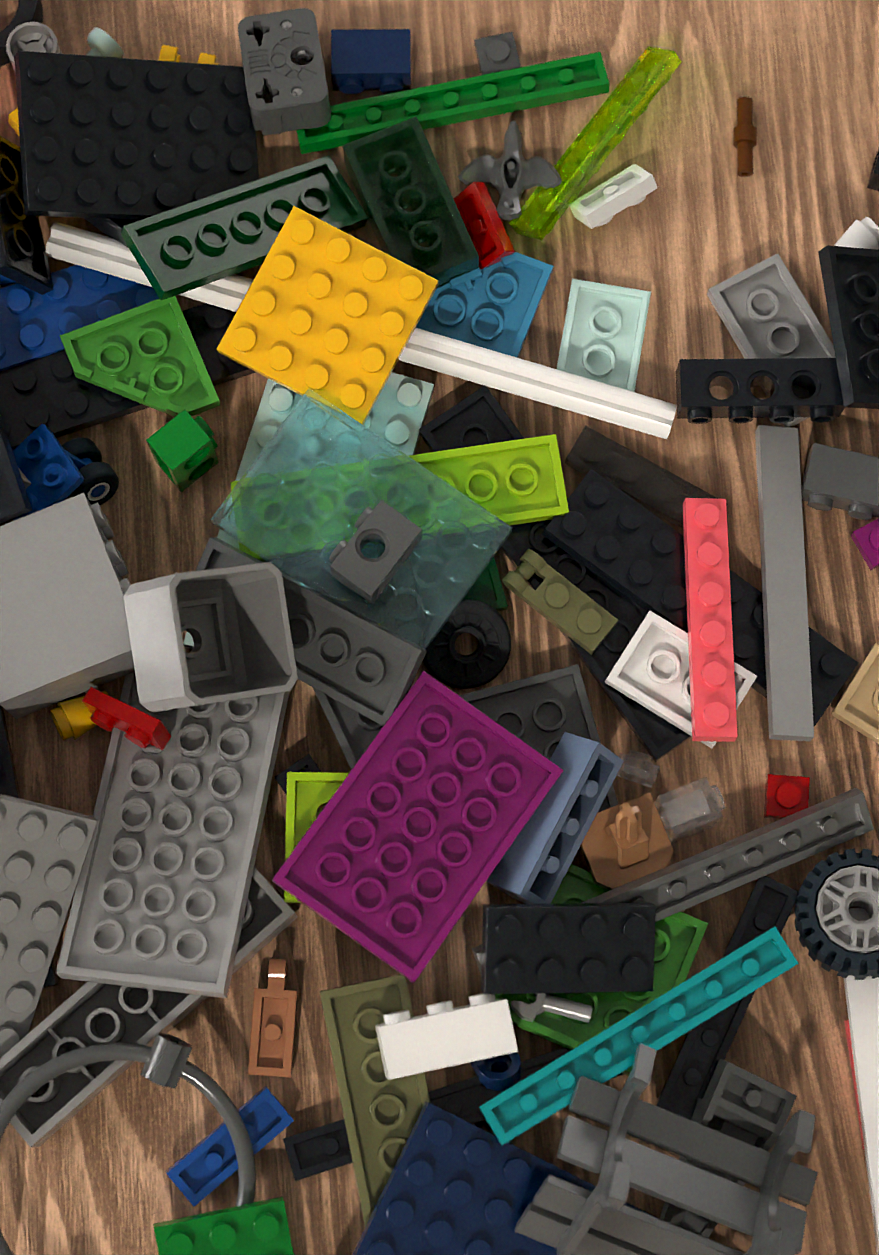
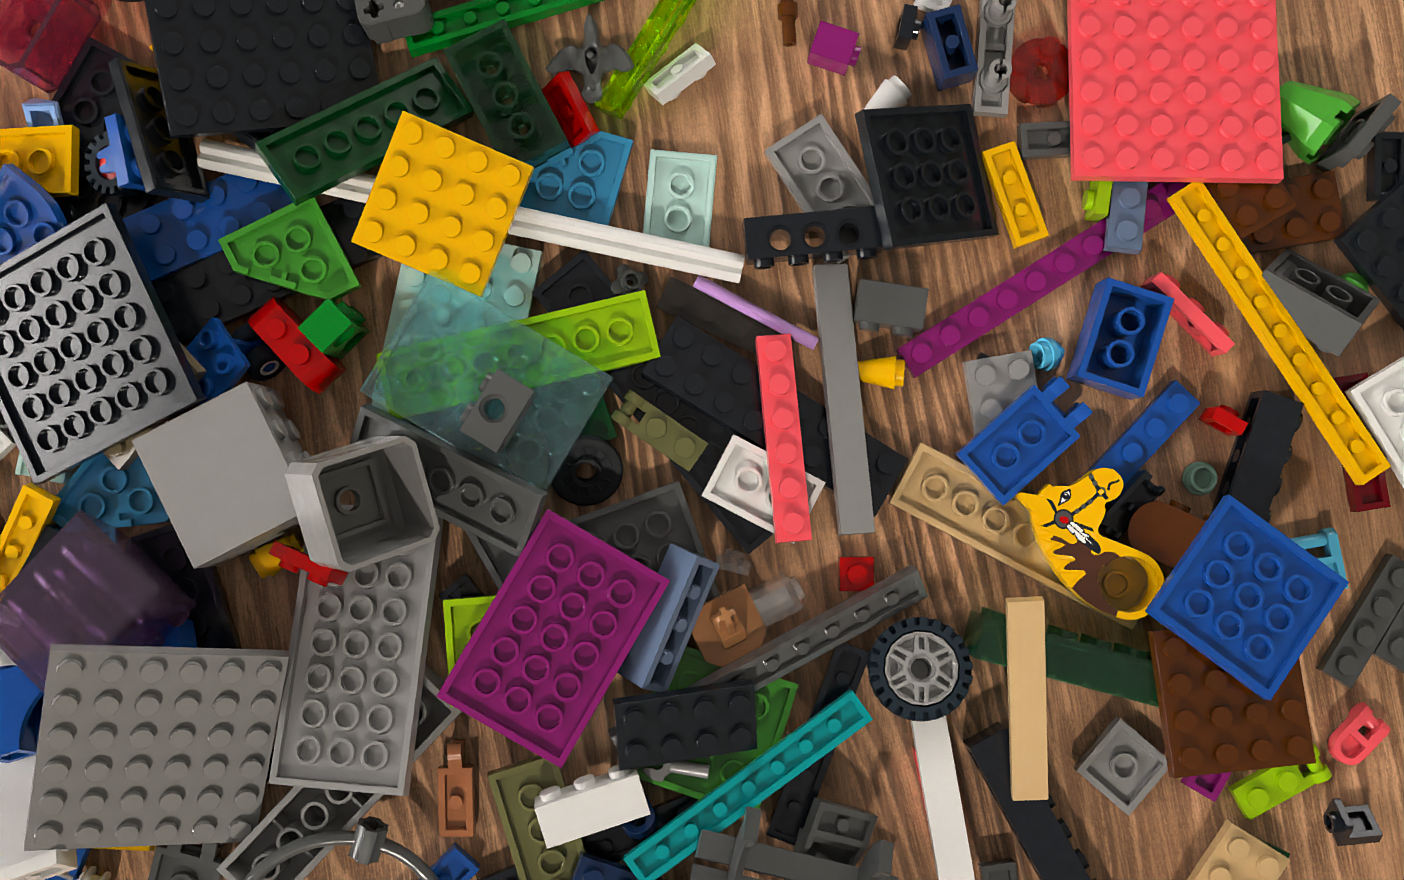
camera: 10 degrees left, 10 degrees up
(136, 466) = (279, 330): none -> red brick
(533, 419) = (625, 274): none -> dark grey plate
(684, 473) = (755, 312): none -> lavender bar
(797, 182) = (834, 48): none -> magenta brick
(833, 557) = (882, 371): none -> yellow cone

